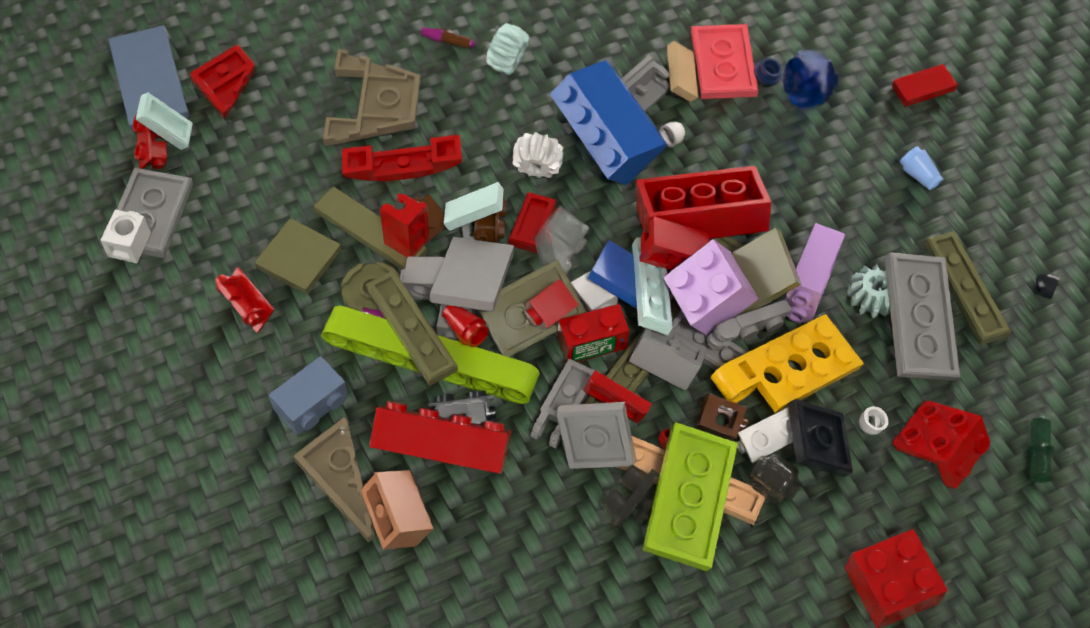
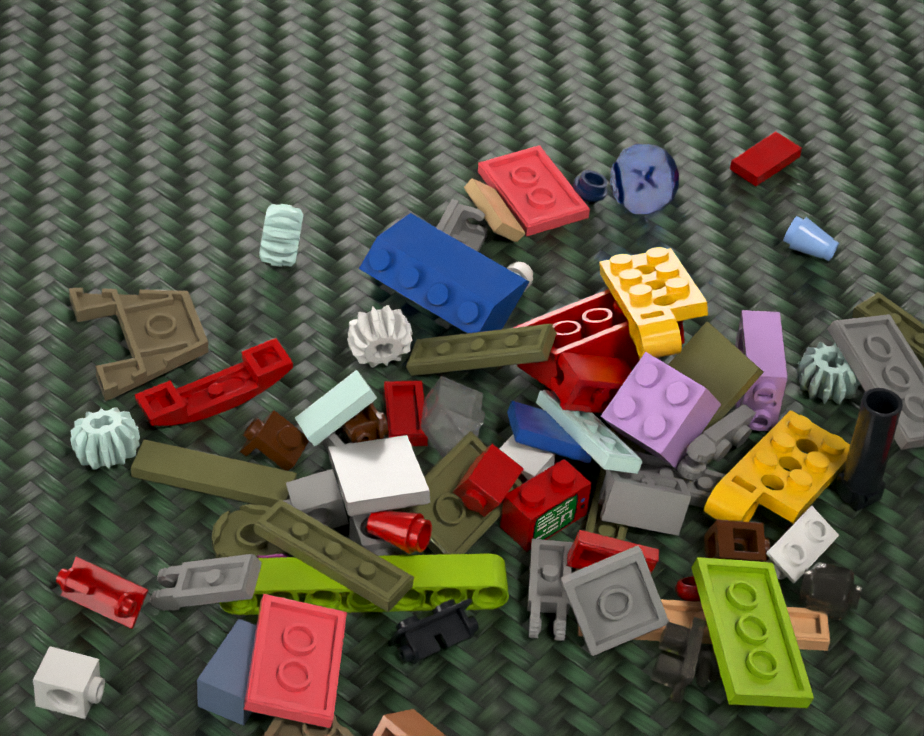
camera: 25 degrees left, 15 degrees down
(188, 363) = (68, 682): none -> white brick
(298, 256) = (139, 528): olive tile -> none
(304, 178) = (105, 438): none -> light aqua gear
(315, 319) = (207, 582): none -> light grey hinge
(342, 403) = (295, 661): none -> coral tile
(405, 228) = (269, 447): red hinge -> none
(440, 438) = (430, 664): red brick -> none
(448, 36) = (193, 245): piece -> none
(605, 191) = (481, 349): none -> olive tile
(750, 190) = (653, 296): none -> yellow hinge
(820, 438) = (855, 533): black tile -> none
(859, 374) = (870, 449): none -> black piece
(878, 421) = (899, 502): white hinge -> none

